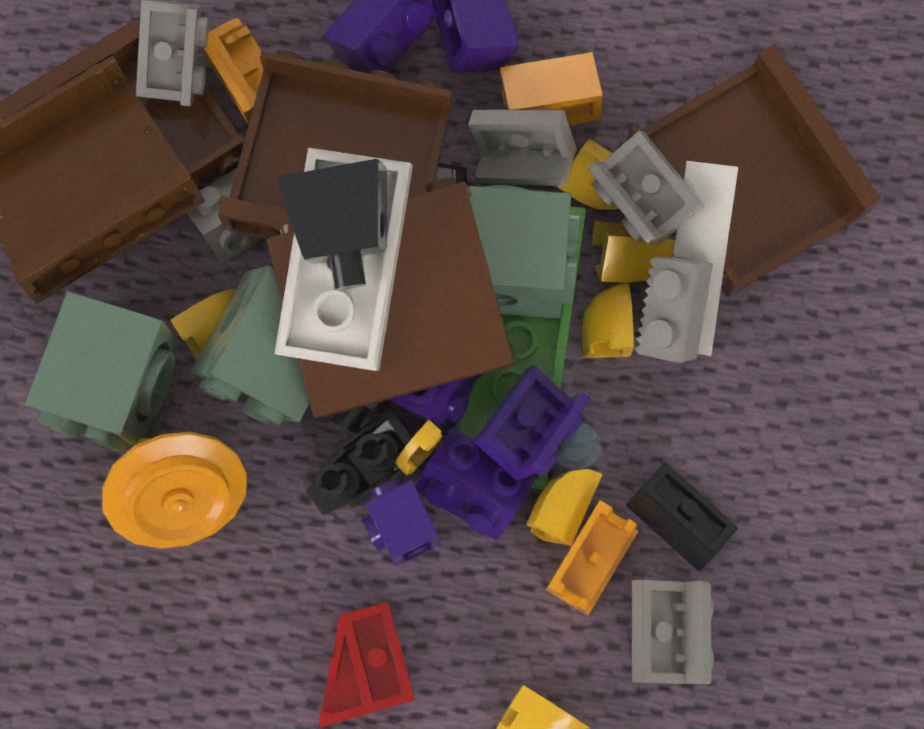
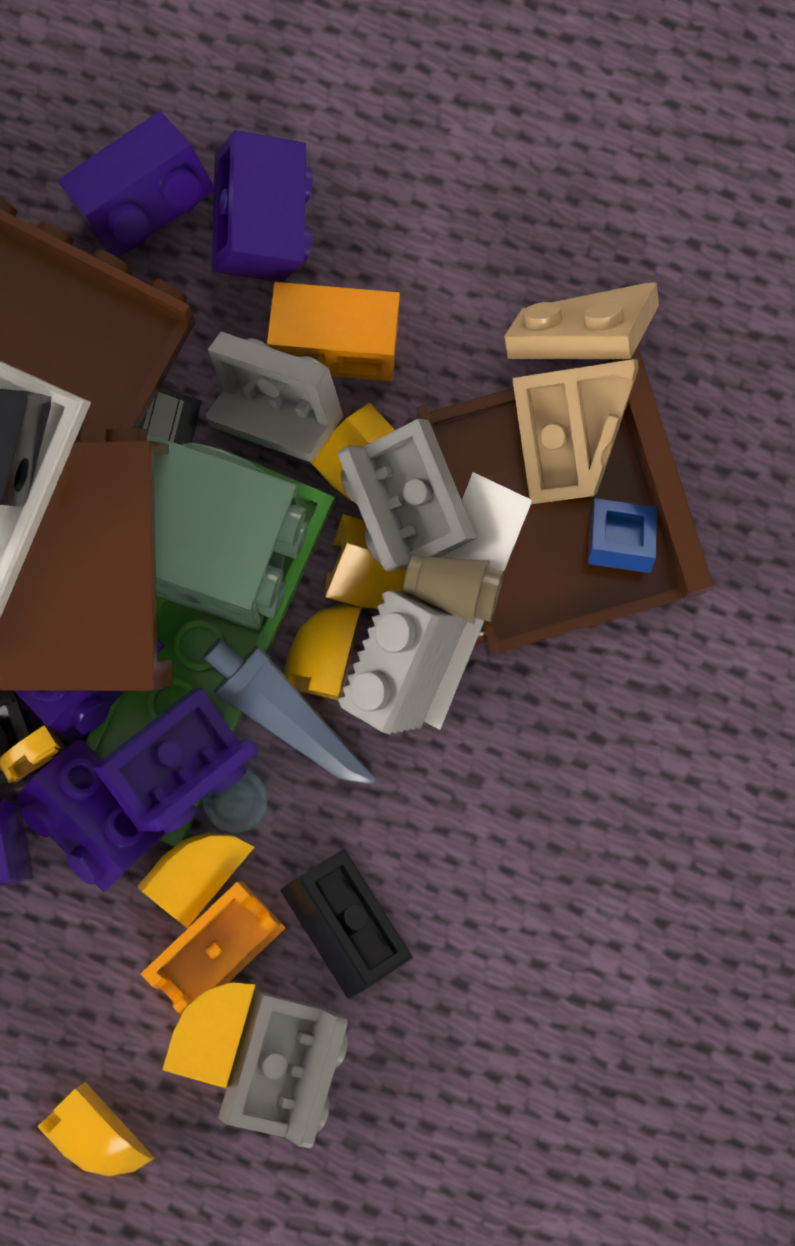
camera: 15 degrees right, 5 degrees up
(586, 366) = (271, 700): none -> sand blue bar
(611, 620) = (210, 1034): none -> yellow brick
(701, 241) = (455, 585): none -> dark tan cone
(730, 43) = (584, 326): none -> tan wing
(744, 112) = (571, 426): none -> tan wing
(802, 182) = (622, 535): none -> blue plate

